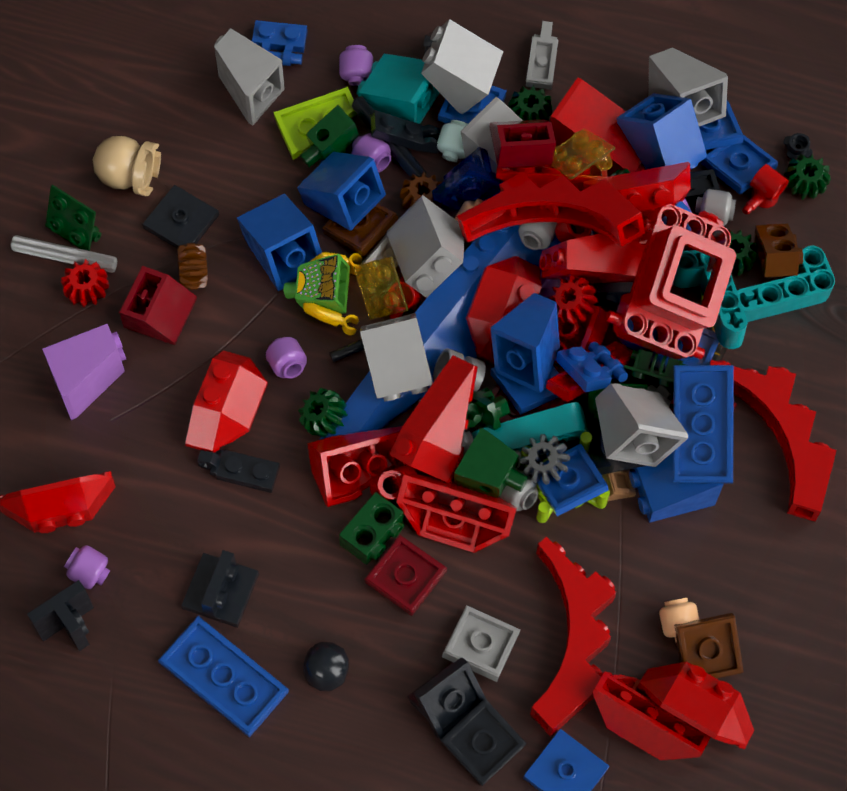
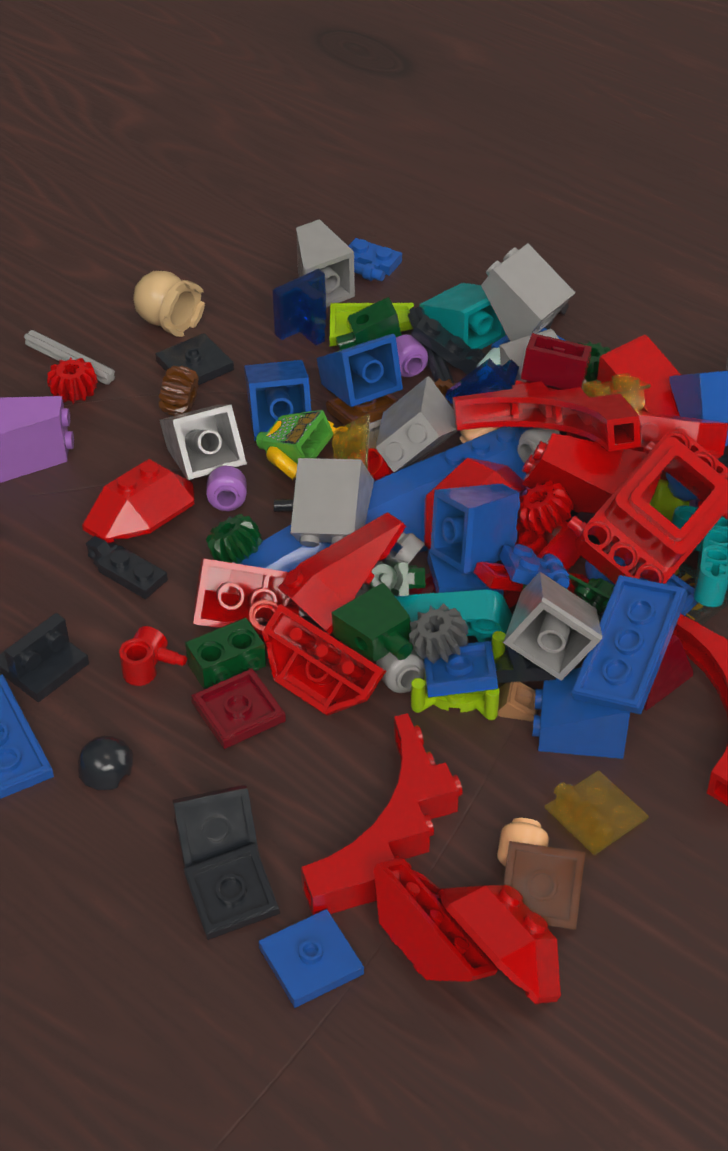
camera: 25 degrees right, 20 degrees down
(71, 219) = (89, 327): dark green hinge -> none
(157, 306) = (124, 411): dark red slope -> none
(243, 314) = (203, 440): none -> light grey slope
(257, 131) = (301, 307): none -> clear blue bracket
(306, 545) = (142, 654): none -> red piece
(355, 64) = (430, 284): medium lavender head -> none
(481, 642) = (285, 796): light grey plate -> none
(542, 58) = (625, 327): light grey hinge -> none
(717, 564) = (595, 811): none -> clear yellow hinge

